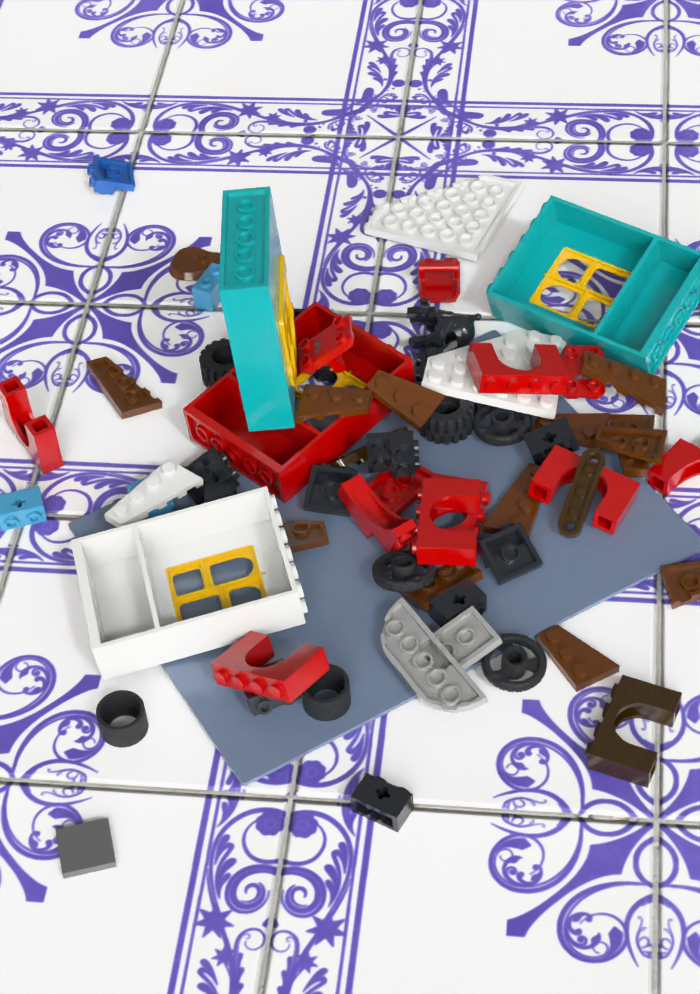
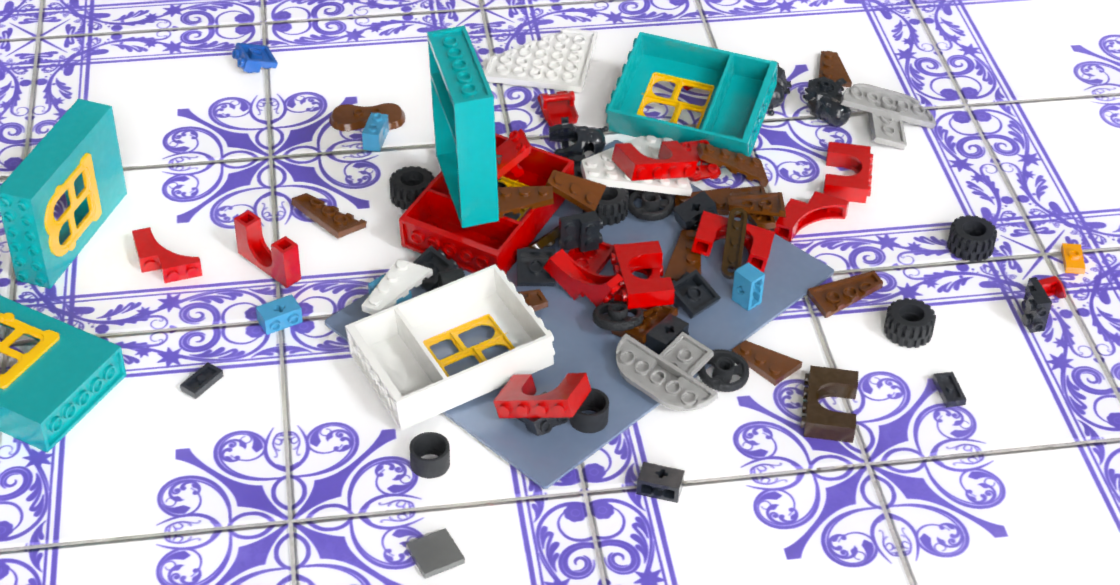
camera: 20 degrees left, 5 degrees down
(578, 554) = (748, 286): none -> dark azure brick

